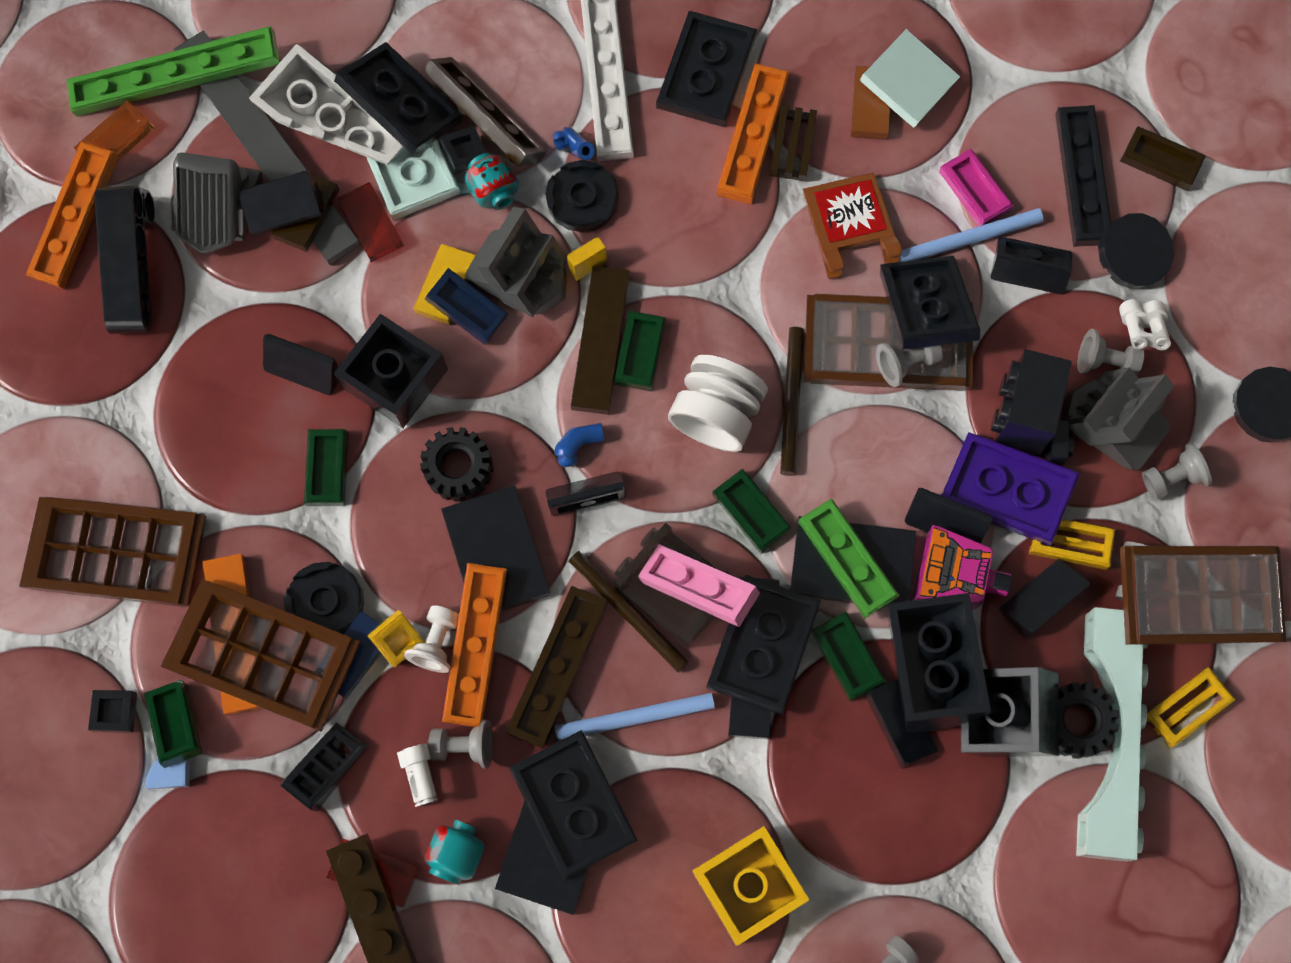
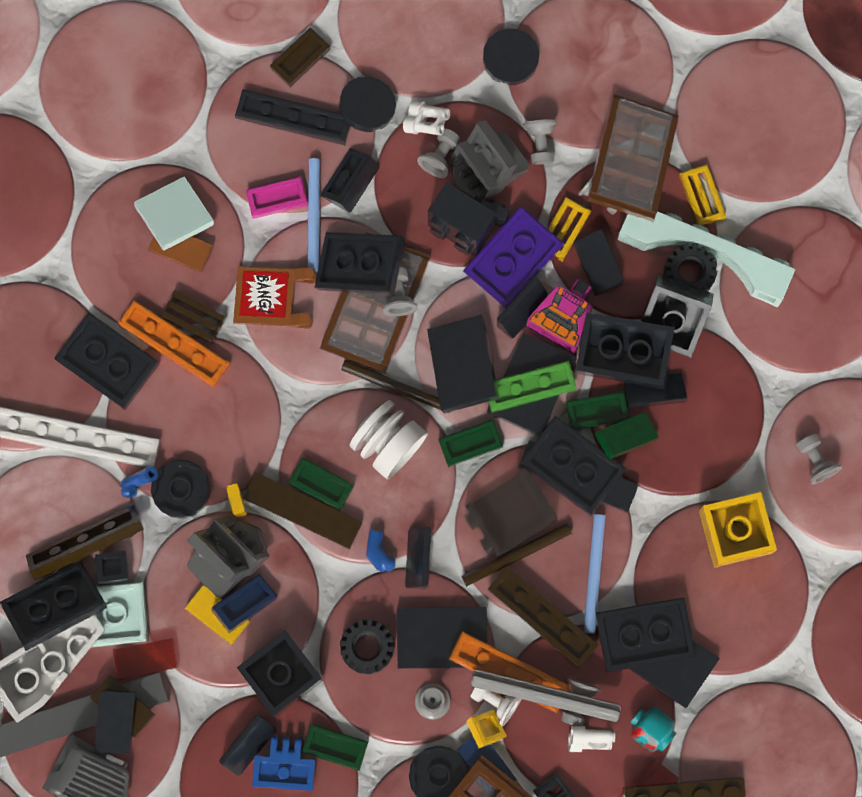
camera: 75 degrees left, 5 degrees up
(285, 414) = (284, 767): none -> blue hinge
(413, 564) = (432, 701): none -> light grey piece
(454, 698) = (546, 695): none -> light grey axle
(491, 181) = (146, 554): teal head -> none
(699, 585) = (521, 496): bright pink plate -> none
(827, 701) = (626, 435): none -> dark green tile
(847, 465) = (463, 364): none -> black tile

